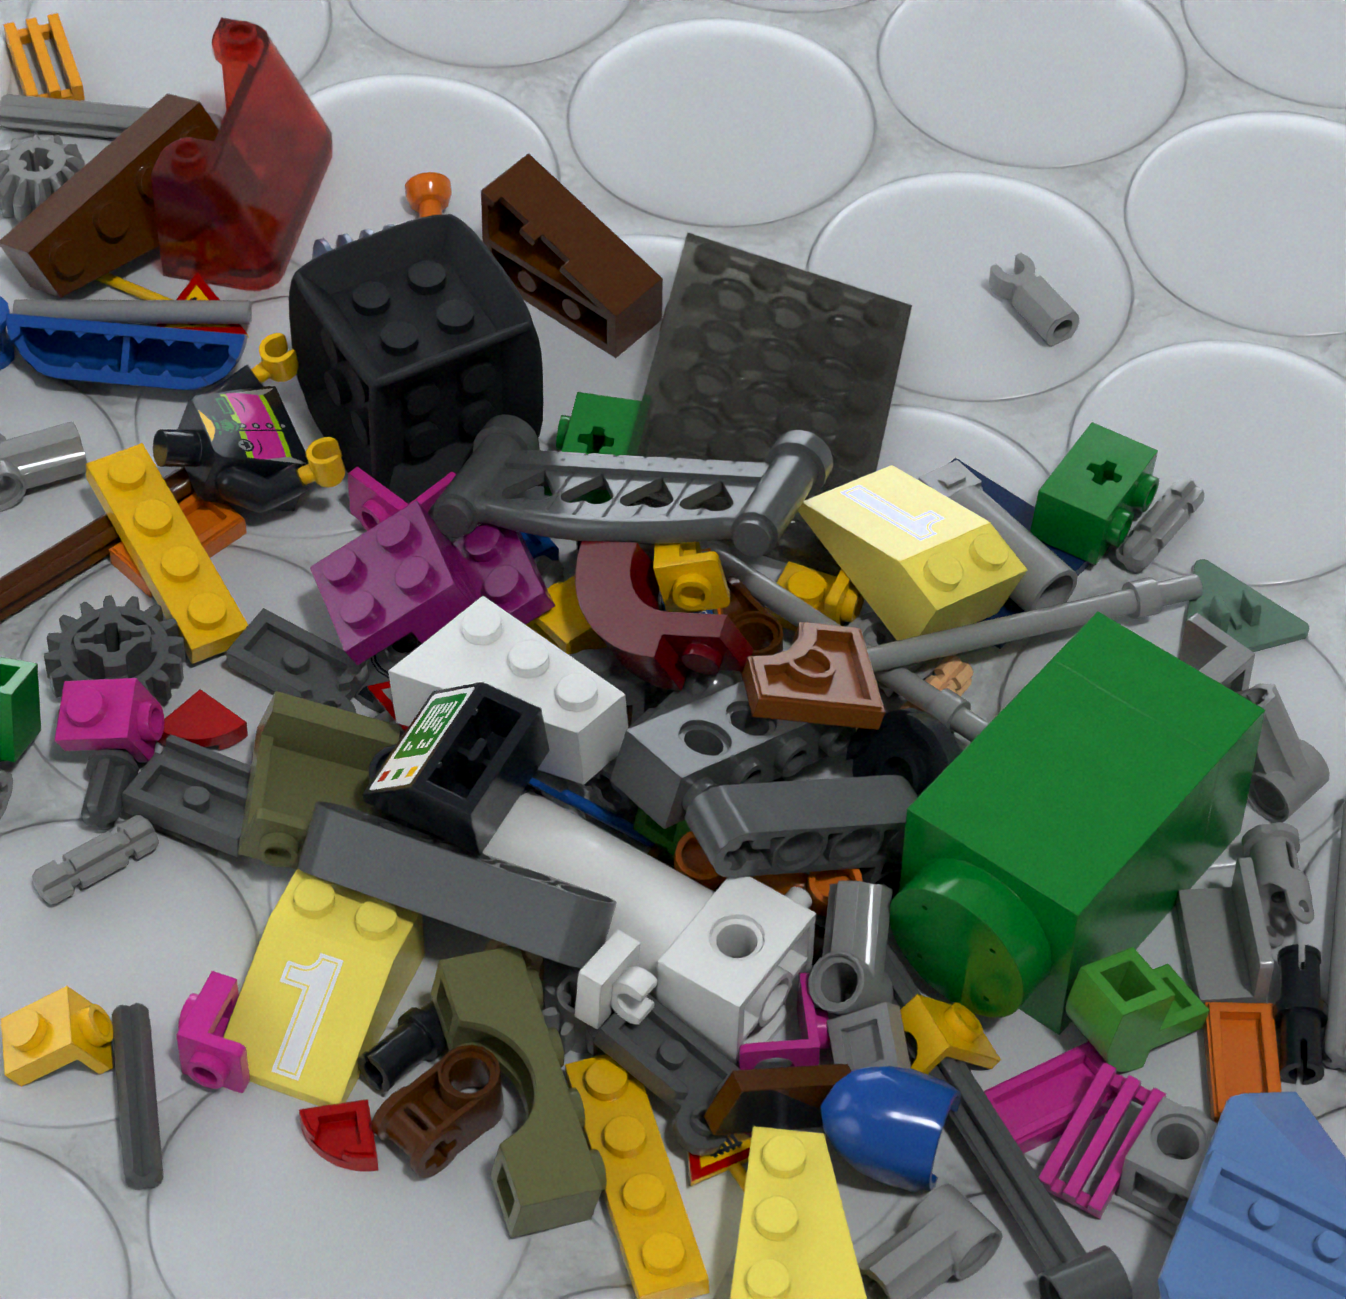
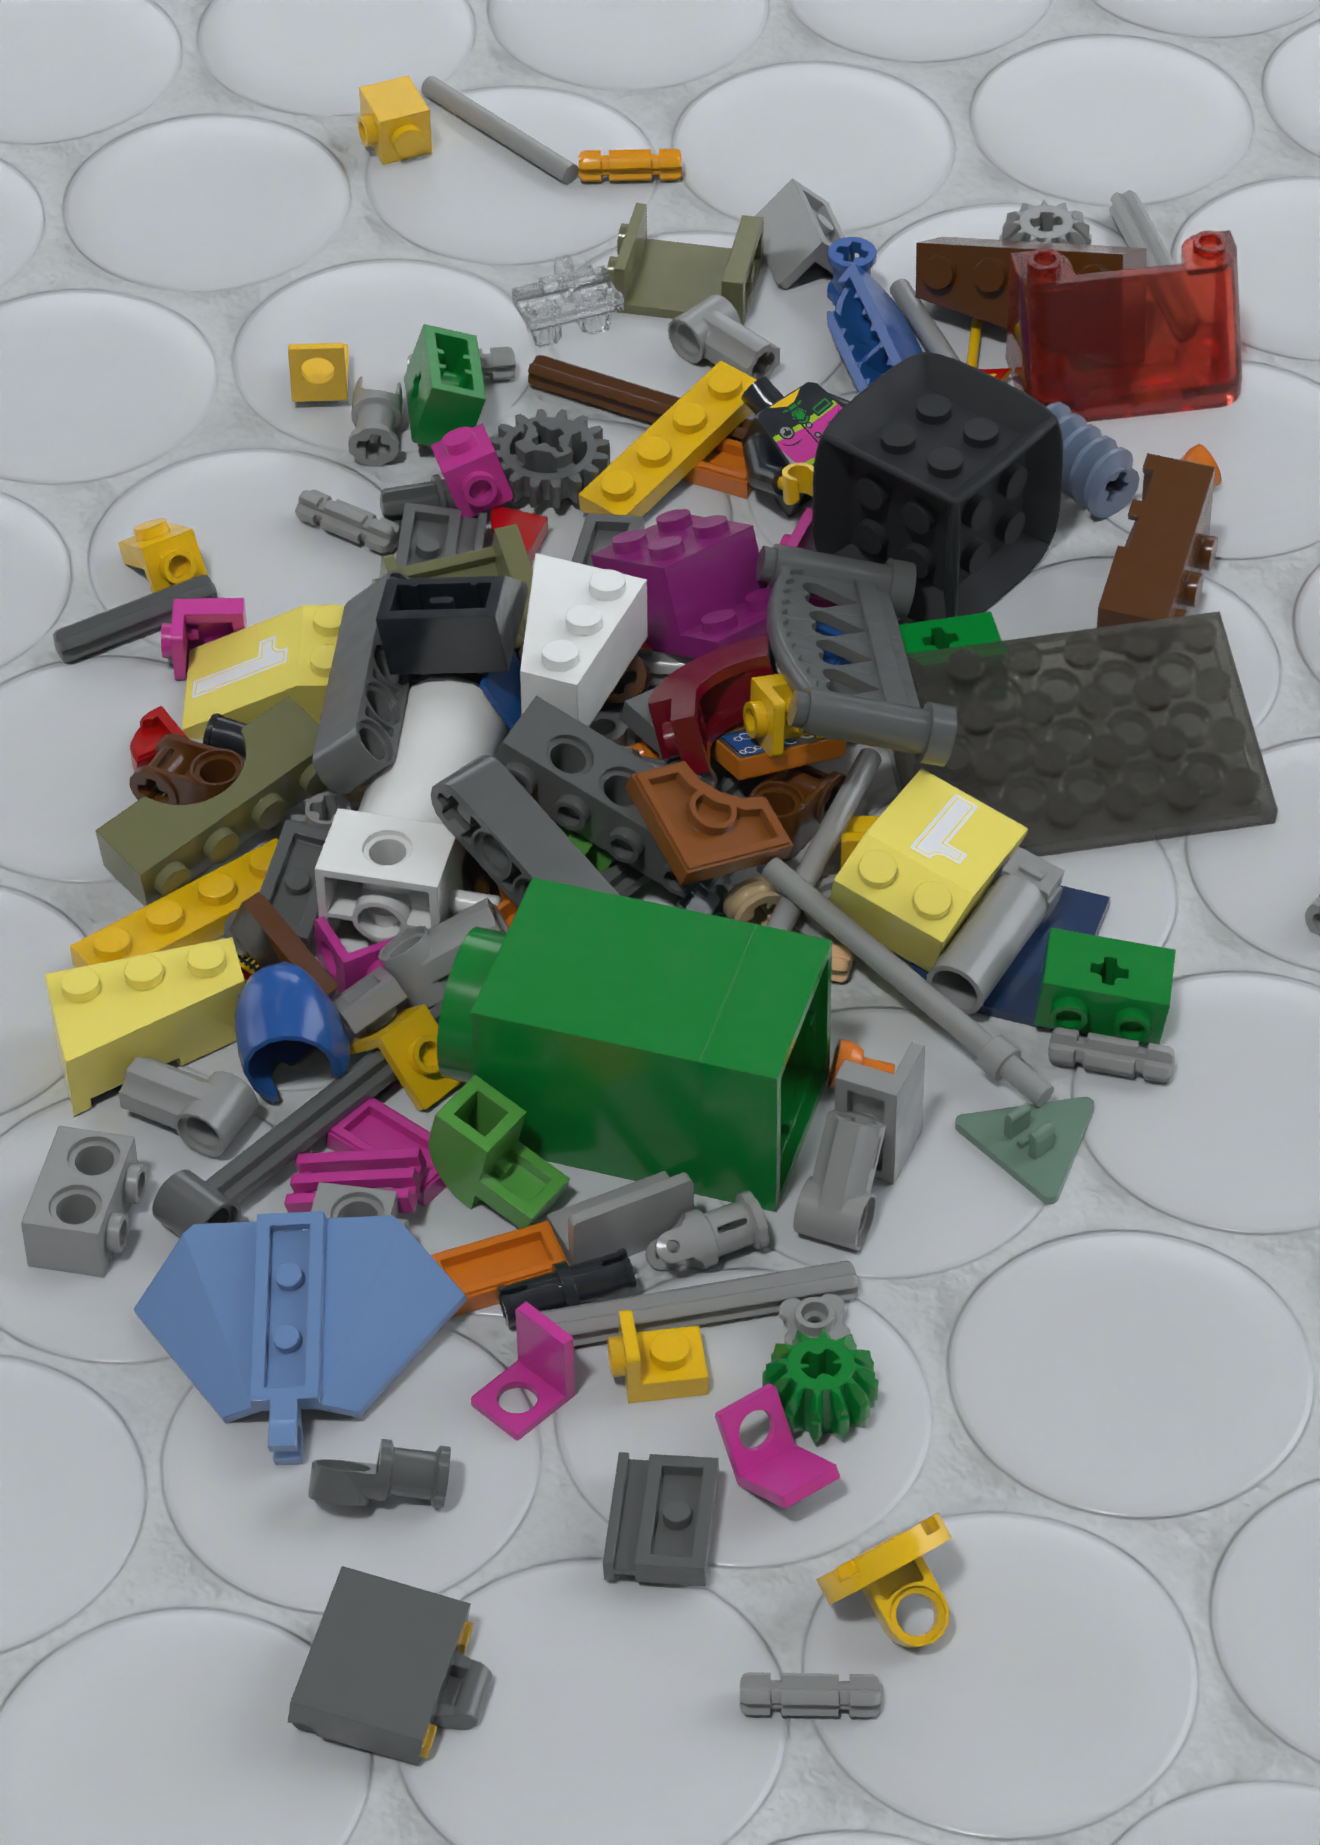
camera: 70 degrees right, 5 degrees down
(36, 35) = (1193, 199): light orange tile -> none
(614, 983) = (317, 798): white tile -> none

